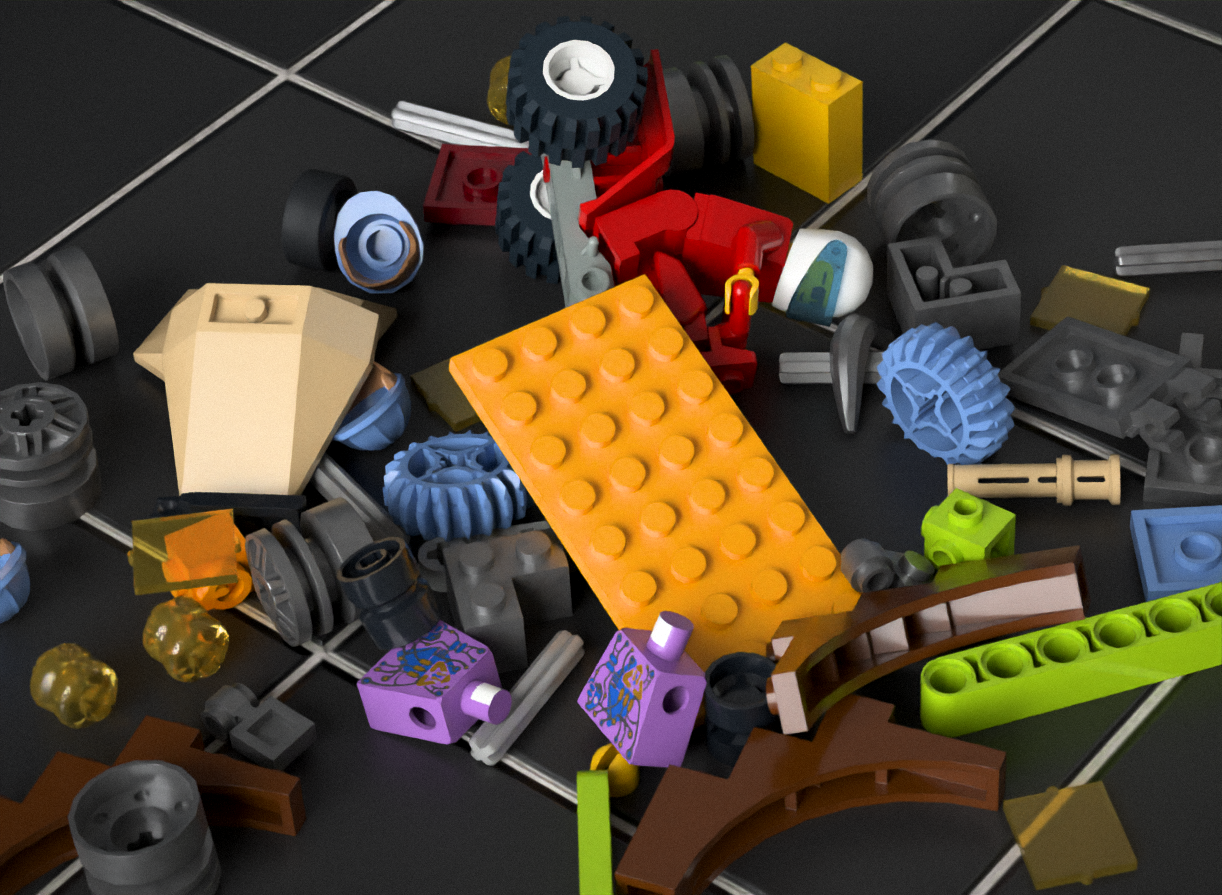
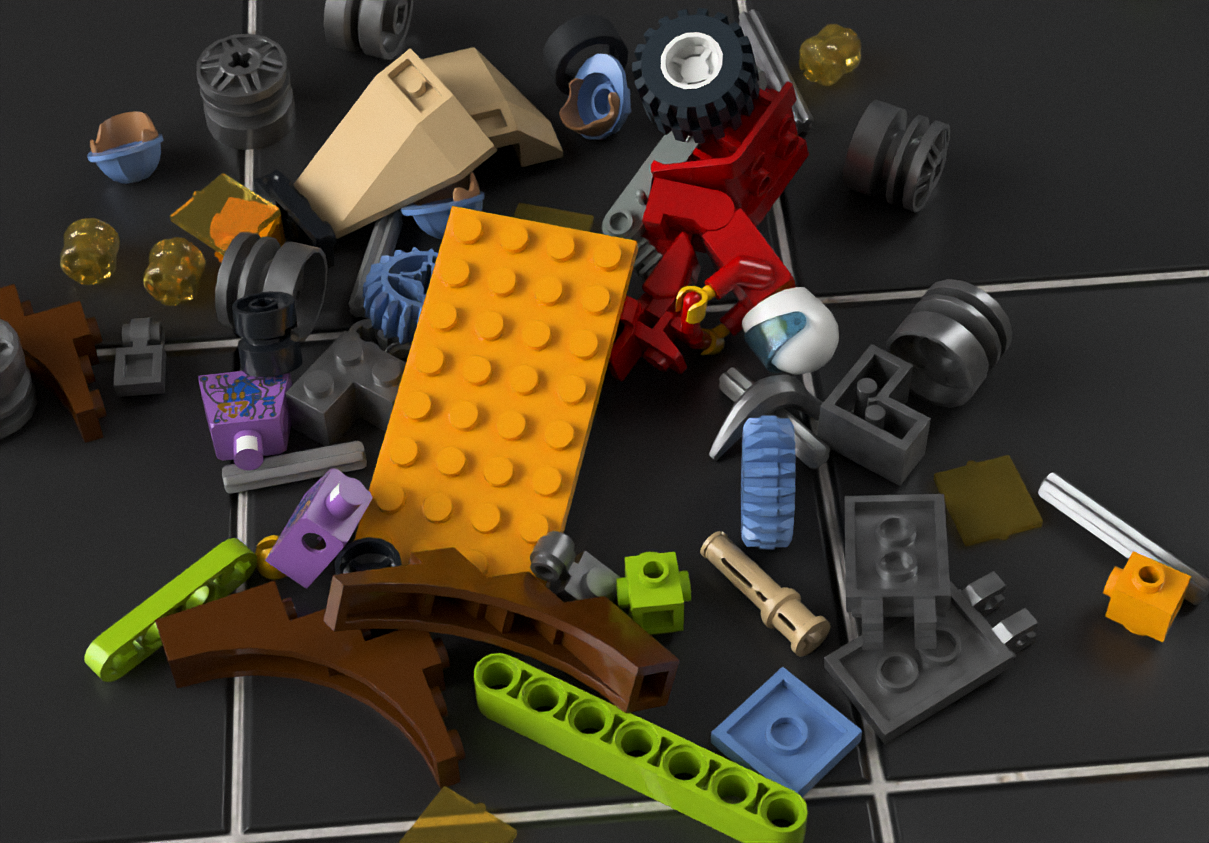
camera: 45 degrees right, 10 degrees up
(807, 122) = (953, 213): yellow brick -> none

